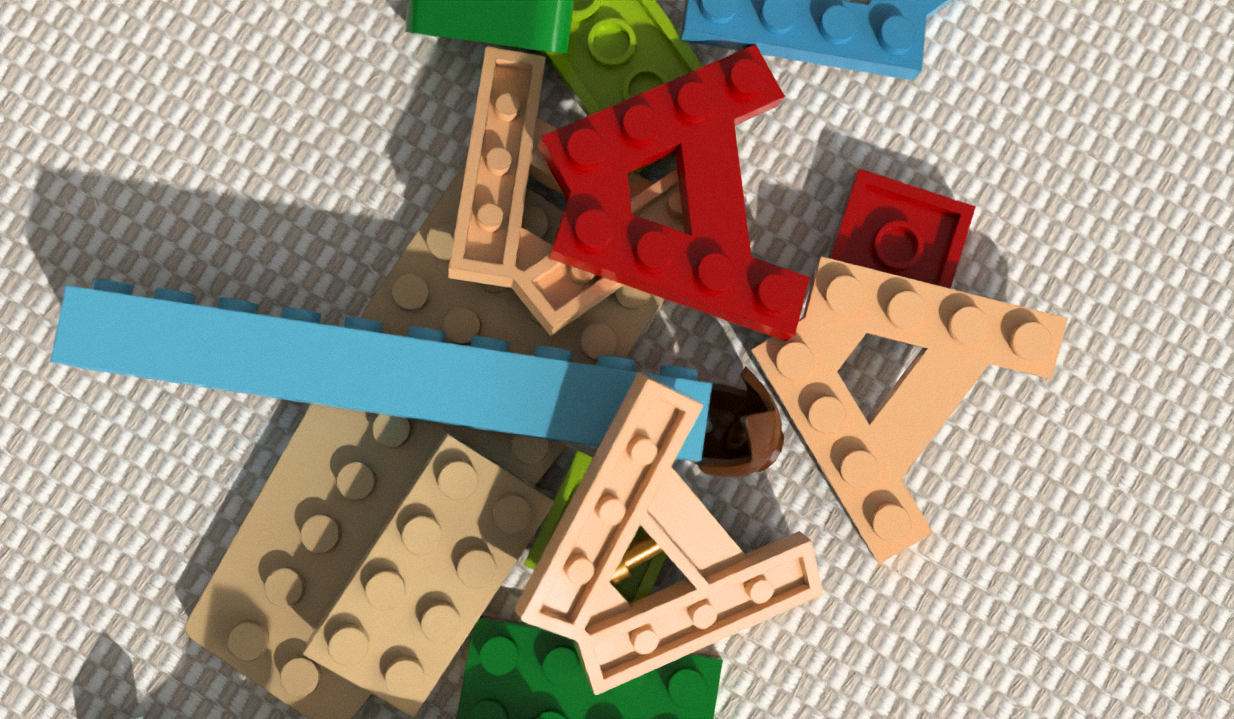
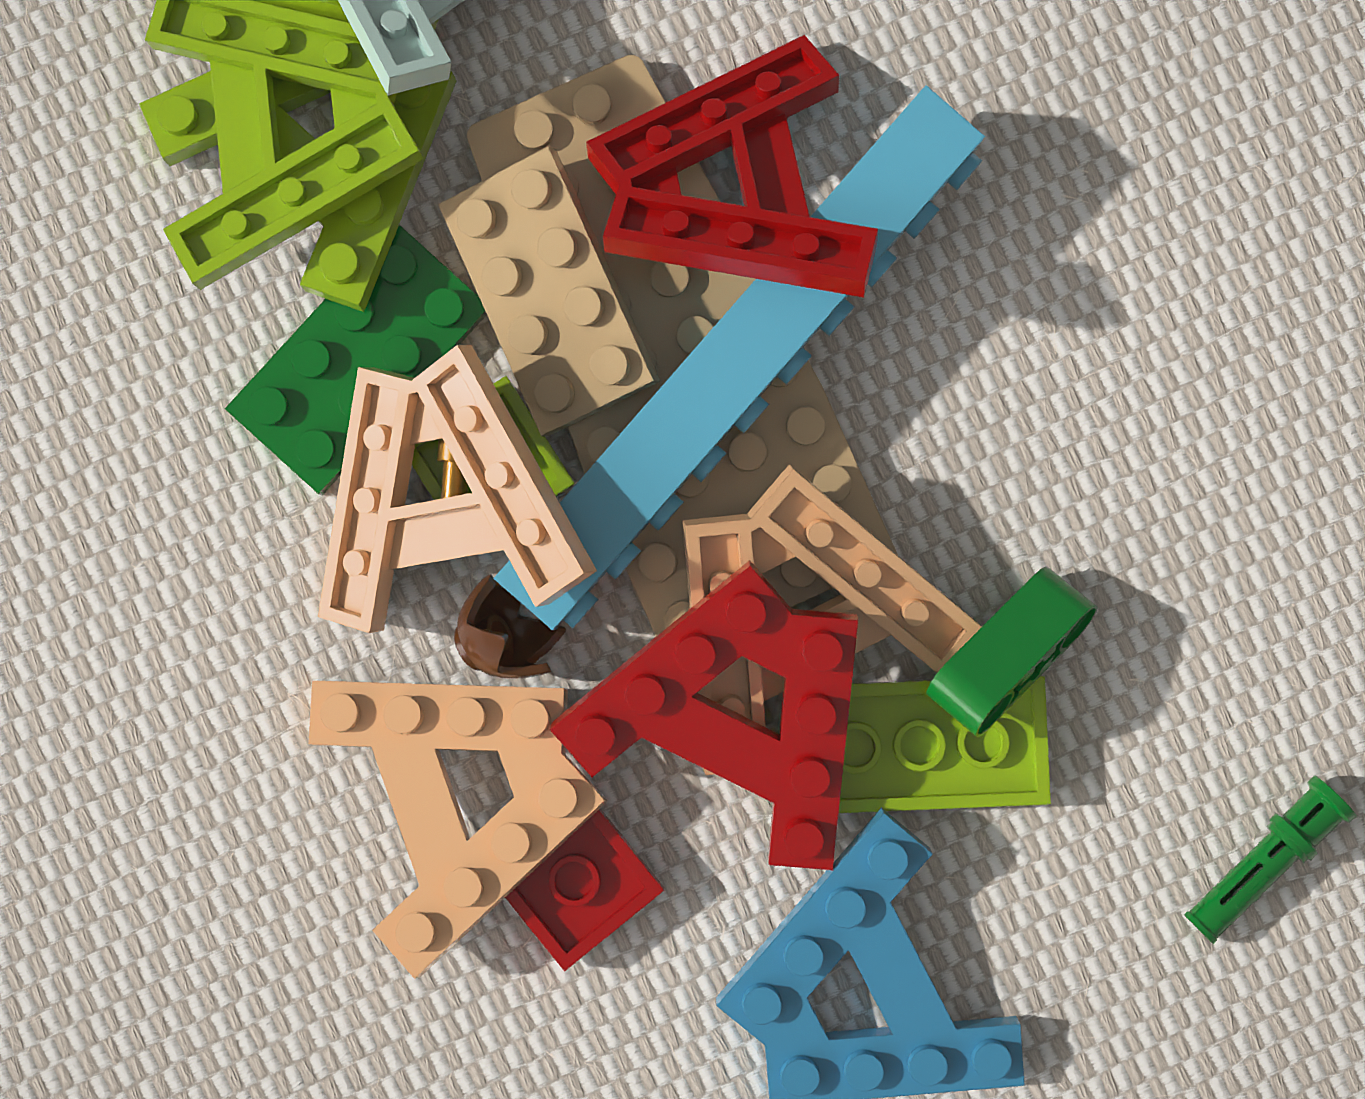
camera: 125 degrees right, 5 degrees up
(253, 416) = (773, 231): none -> red plate

